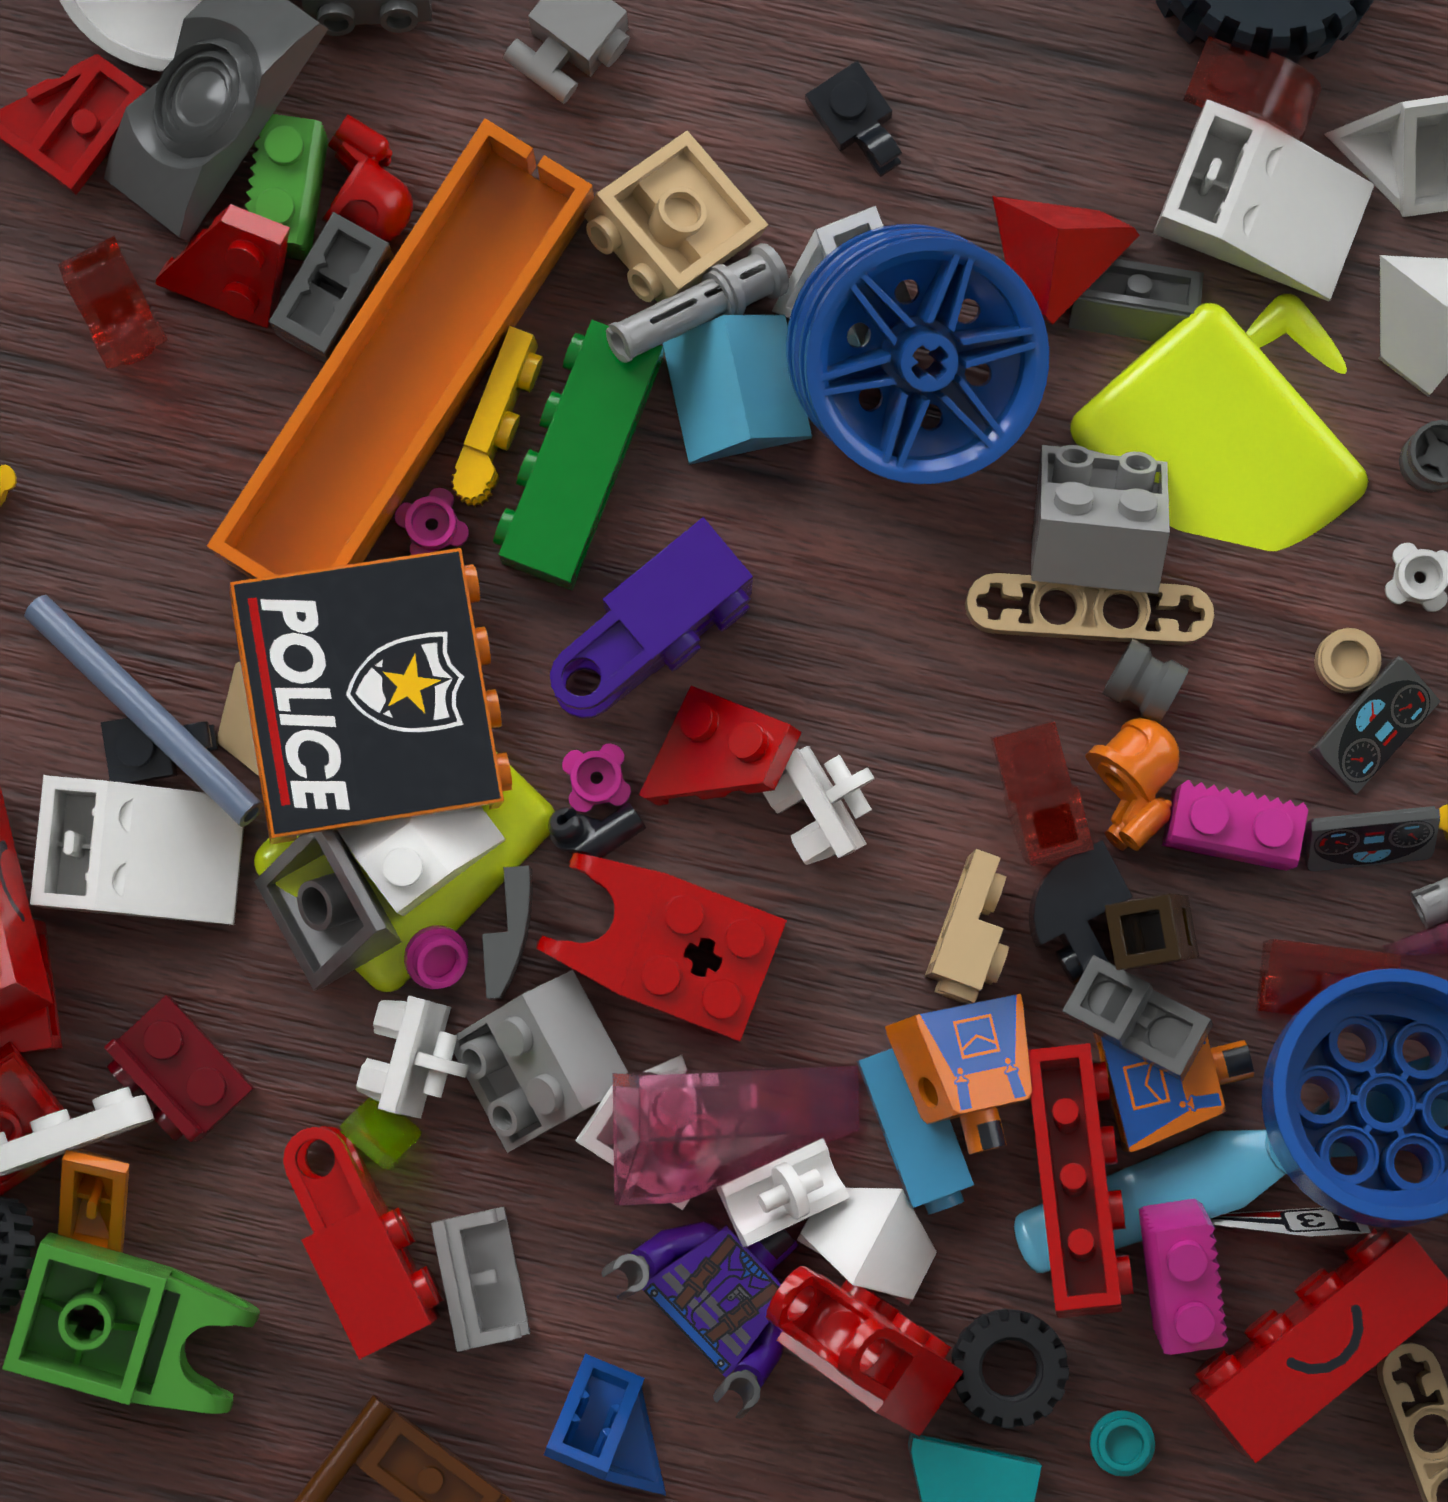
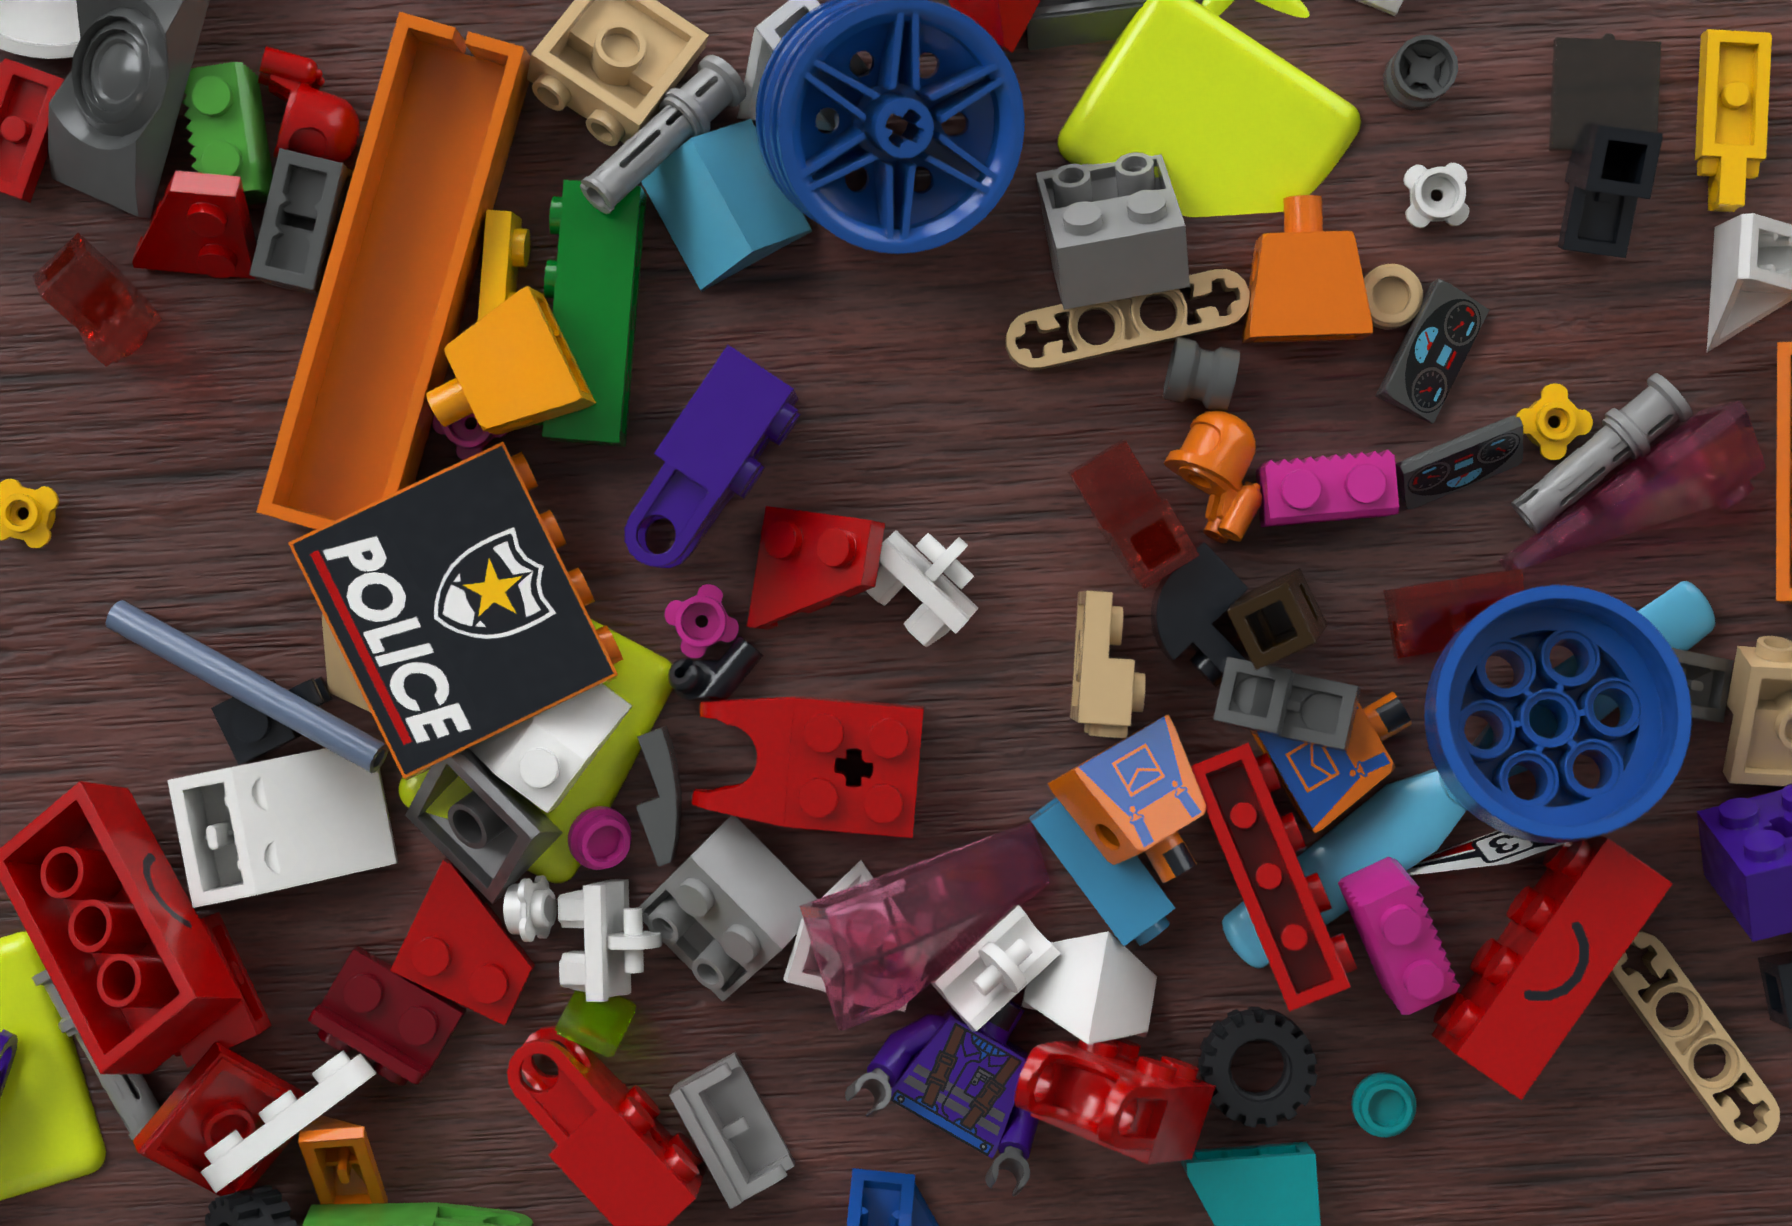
camera: 15 degrees left, 5 degrees up
(271, 1027) = (463, 950): none -> red wing
(349, 1005) = (530, 908): none -> white plate
(489, 482) = (511, 369): none -> light orange torso
(1271, 622) = (1306, 281): none -> orange torso

